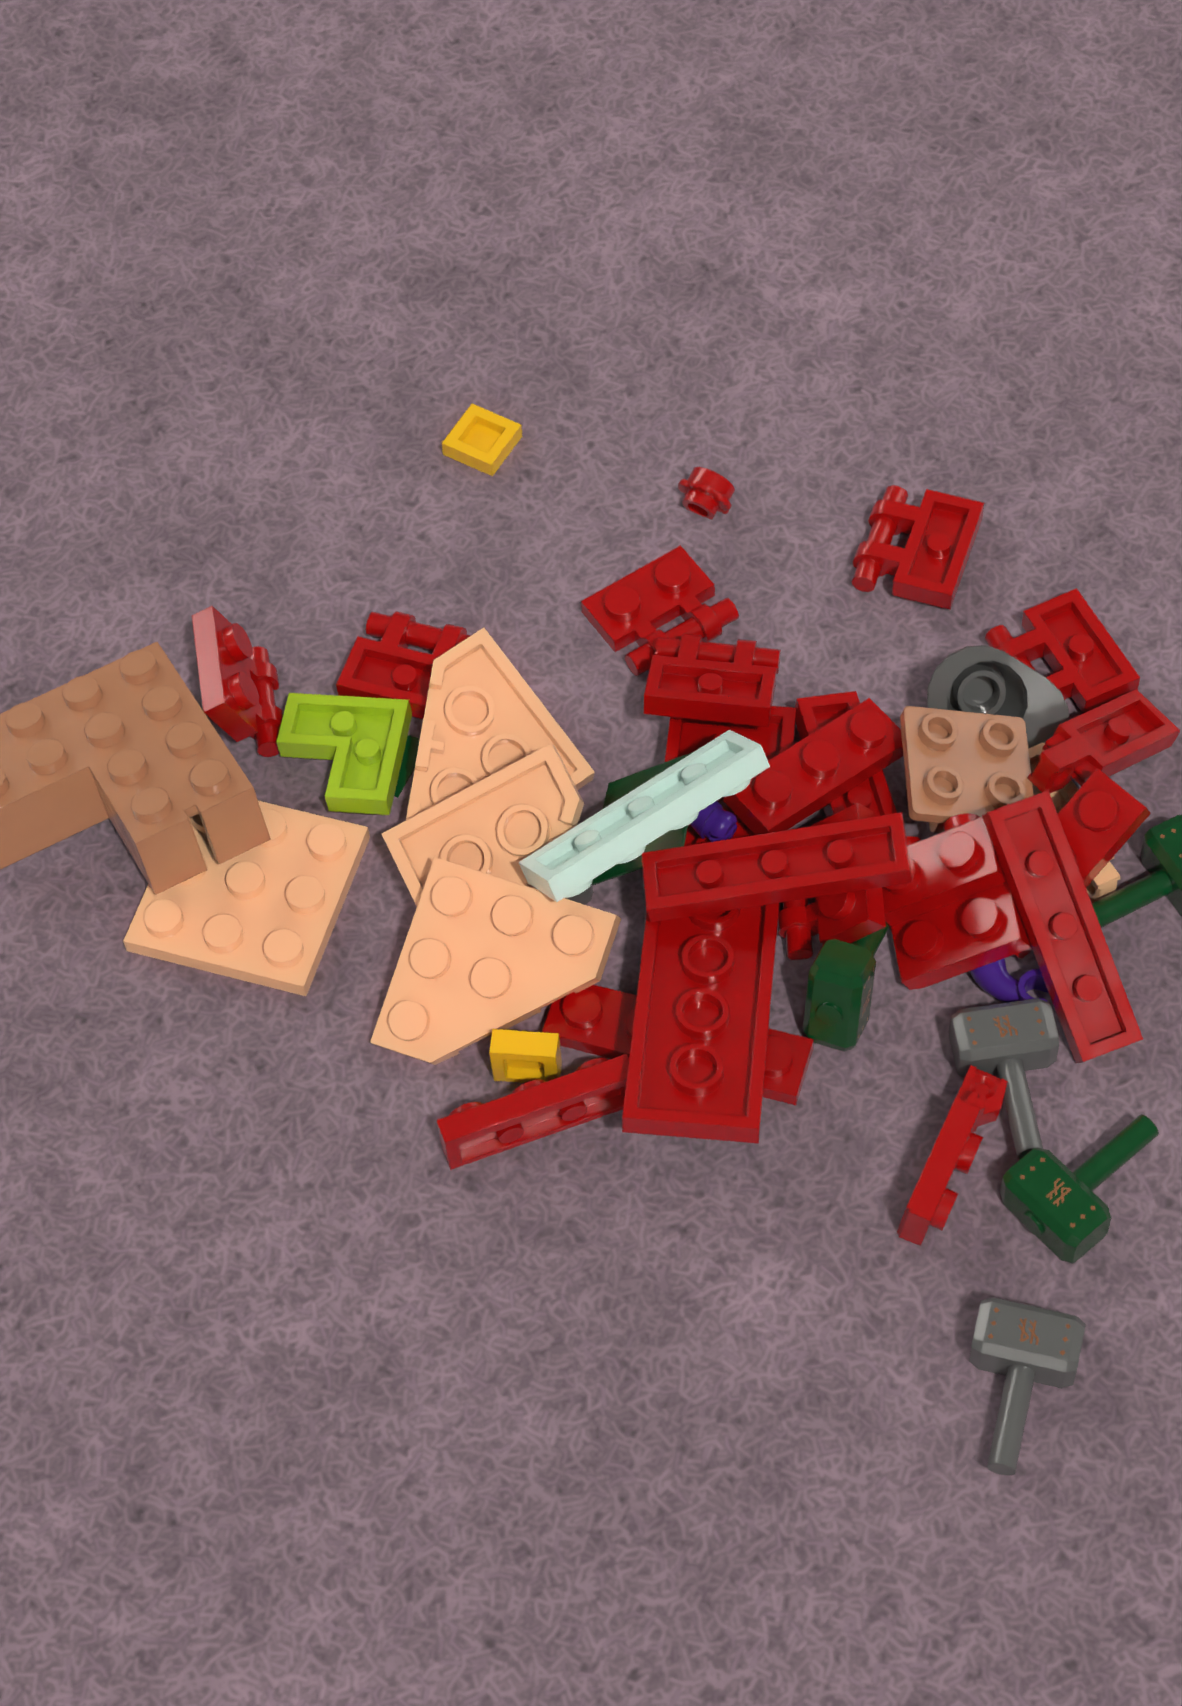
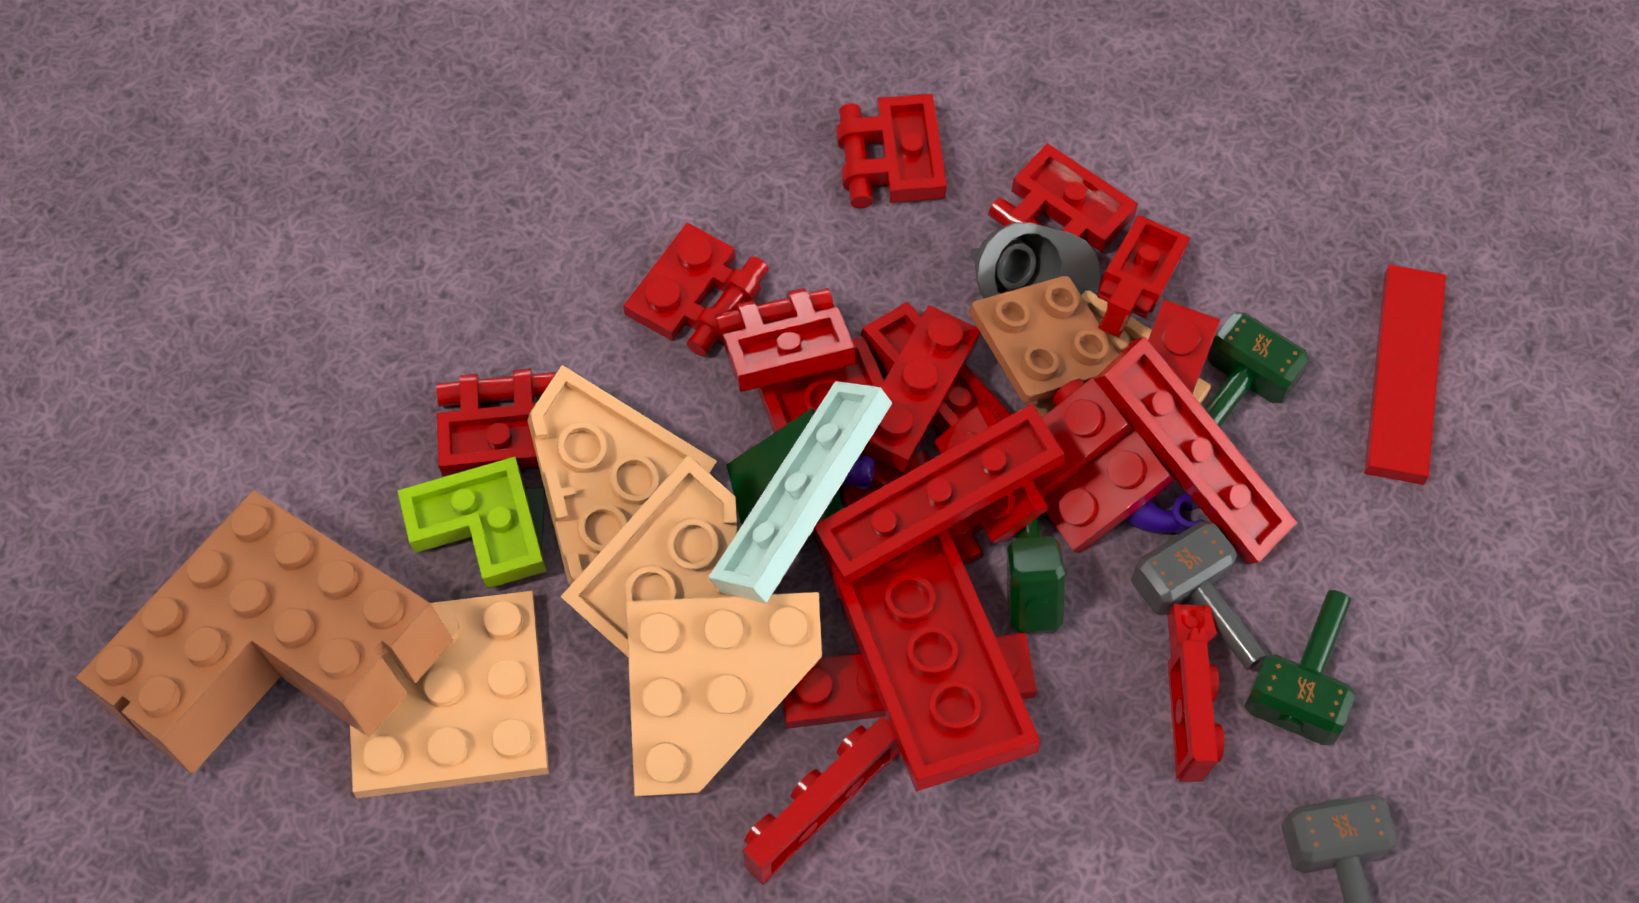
camera: 30 degrees left, 5 degrees up
(236, 681) = (346, 499): red plate -> none
(482, 439) = (457, 185): yellow tile -> none
(524, 1056) = (786, 752): yellow tile -> none
(706, 492) = (686, 166): red plate -> none

